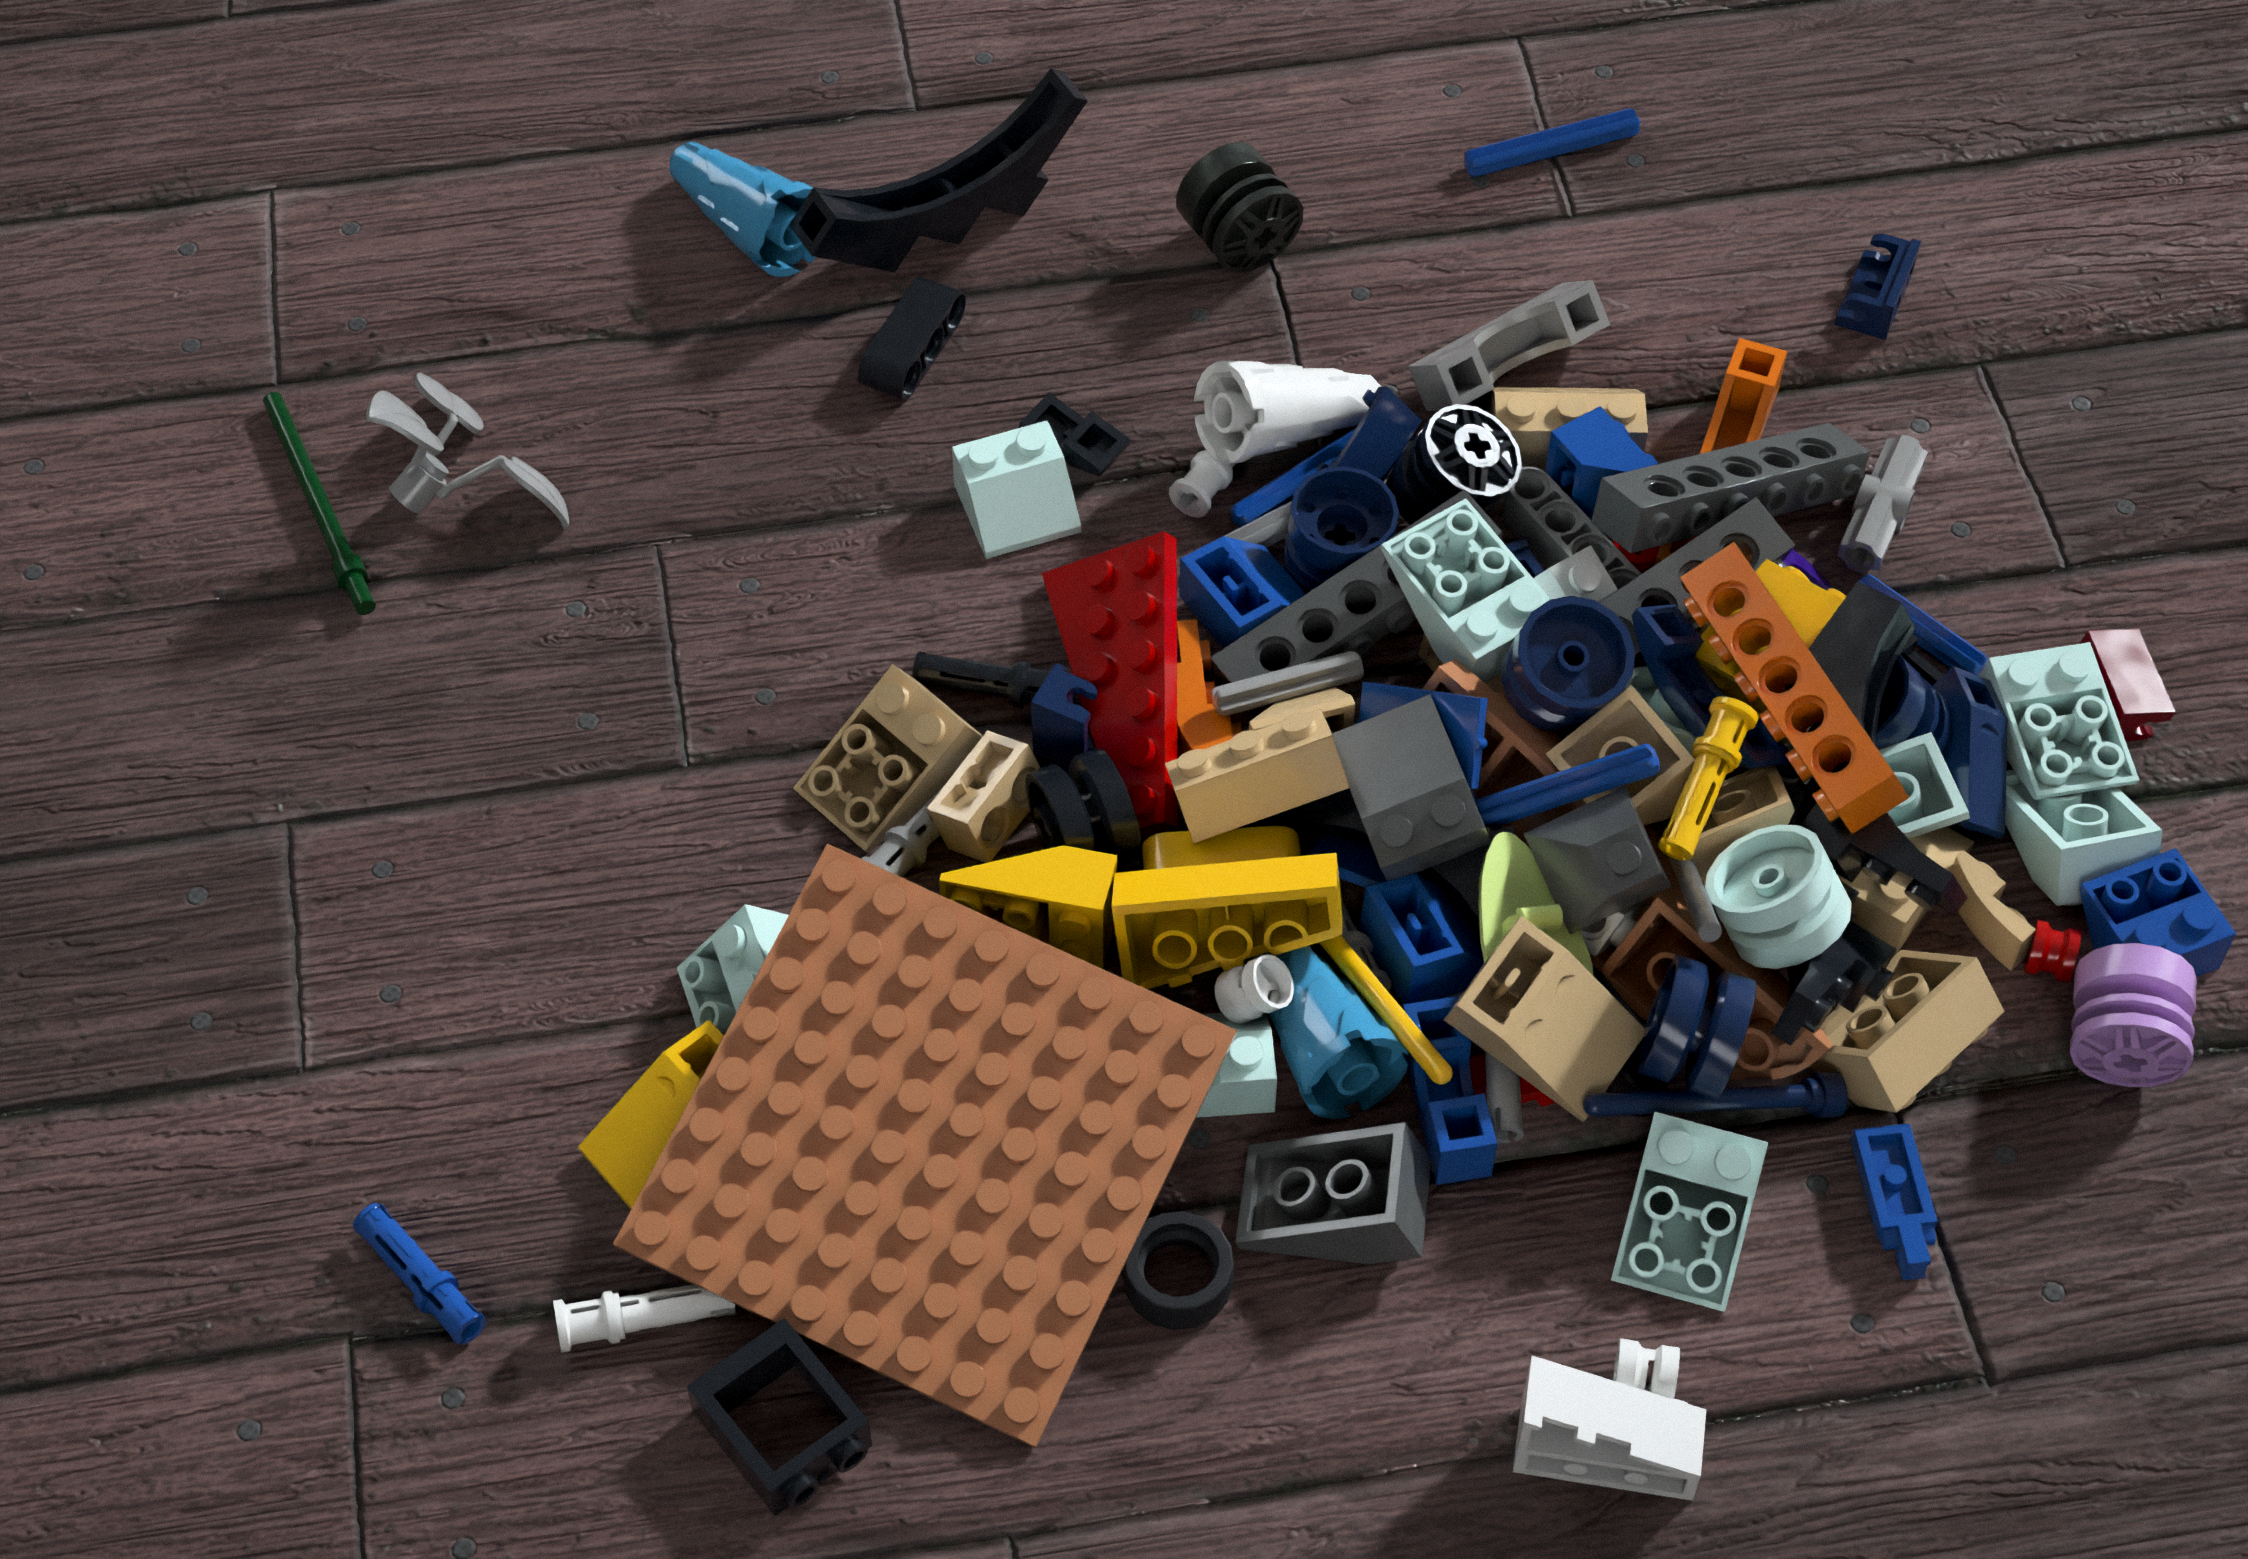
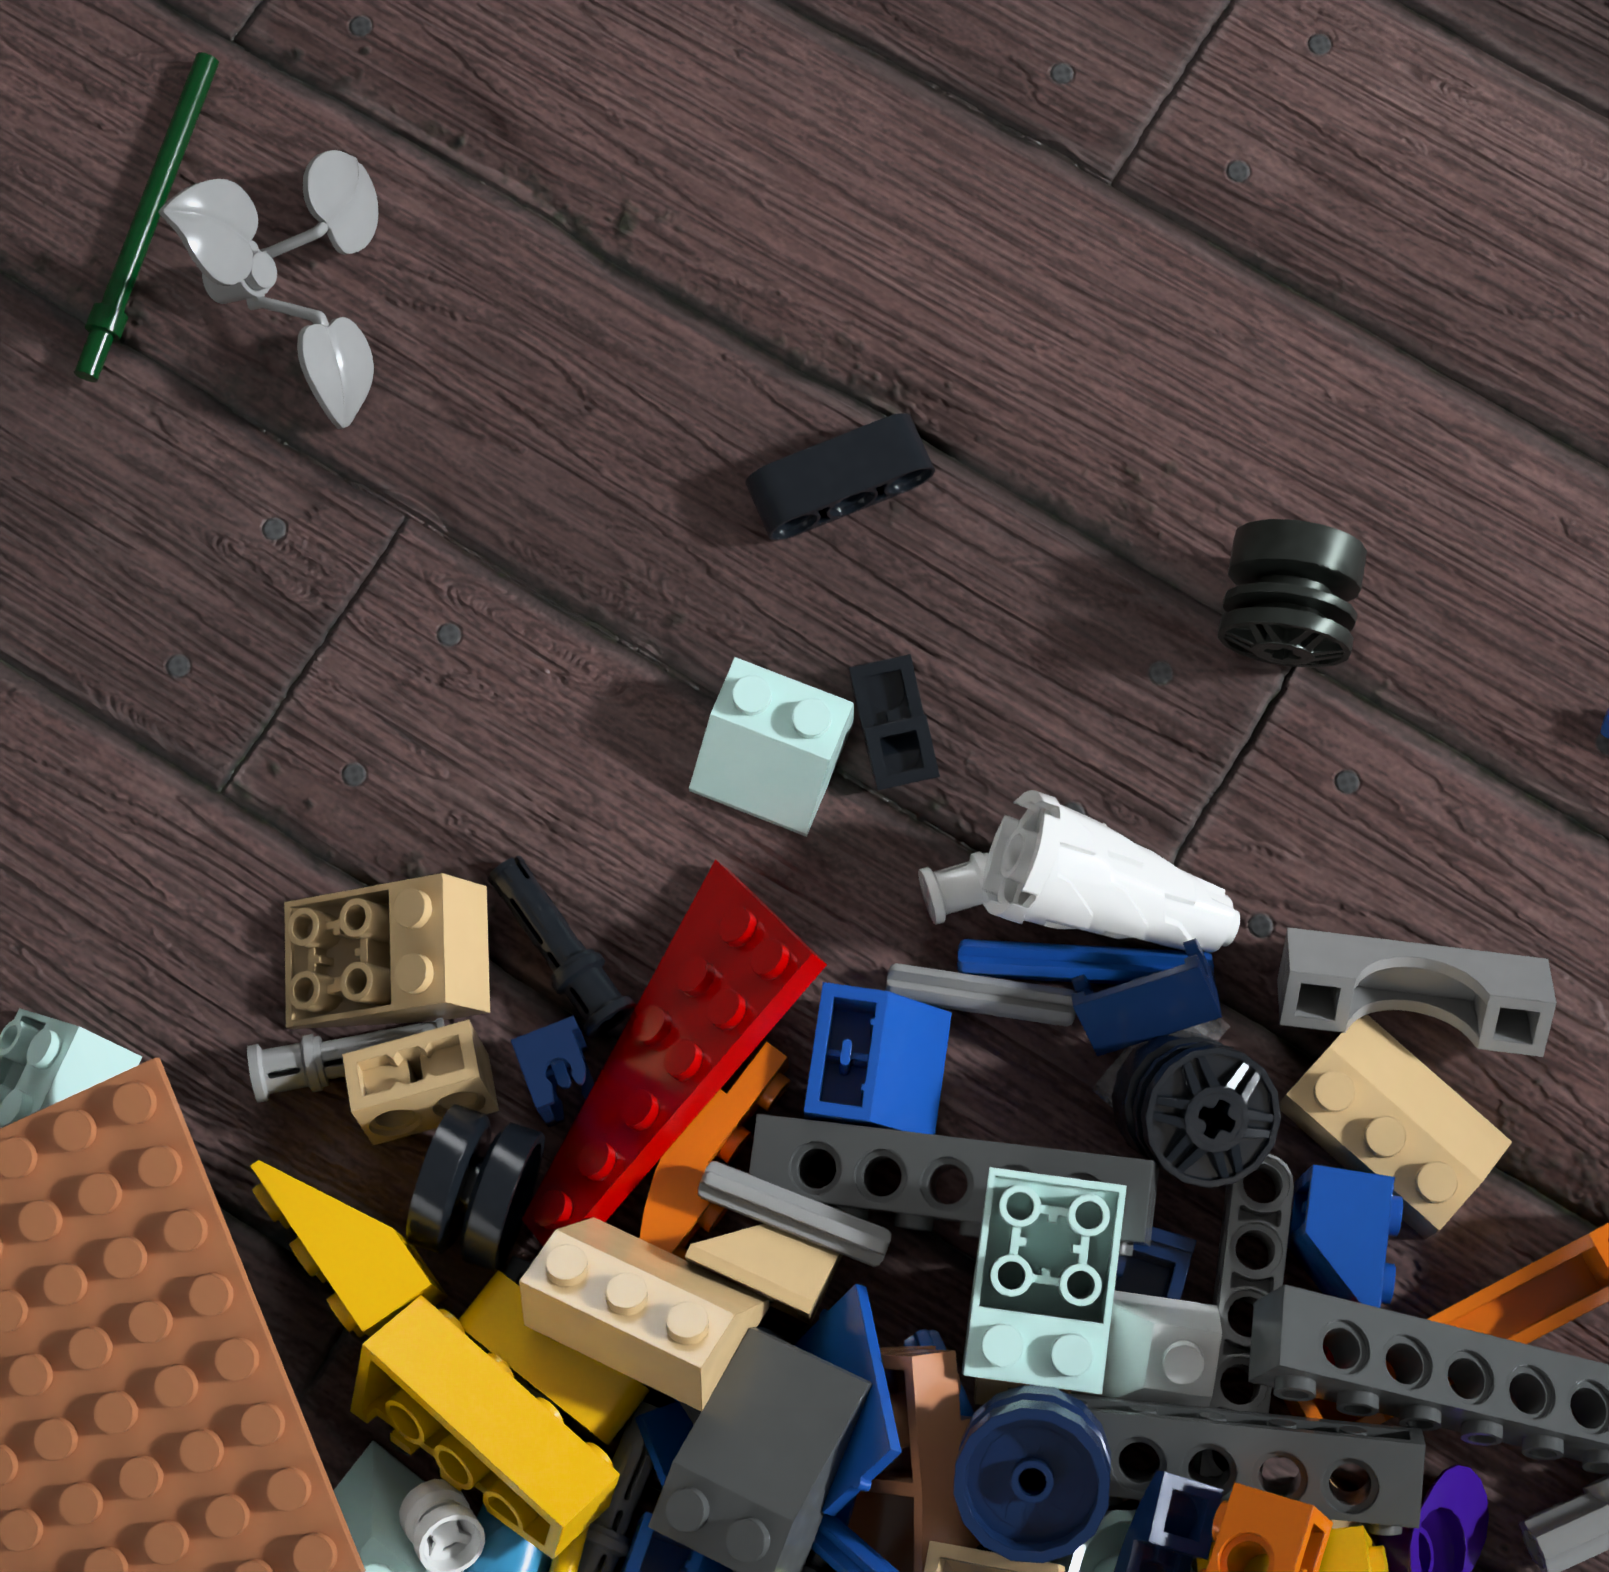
camera: 45 degrees right, 20 degrees up
(746, 204) = (818, 206): dark azure cone -> none
(996, 173) = (1004, 340): black arch -> none
(1335, 522) = (1014, 1040): dark blue wheel -> none

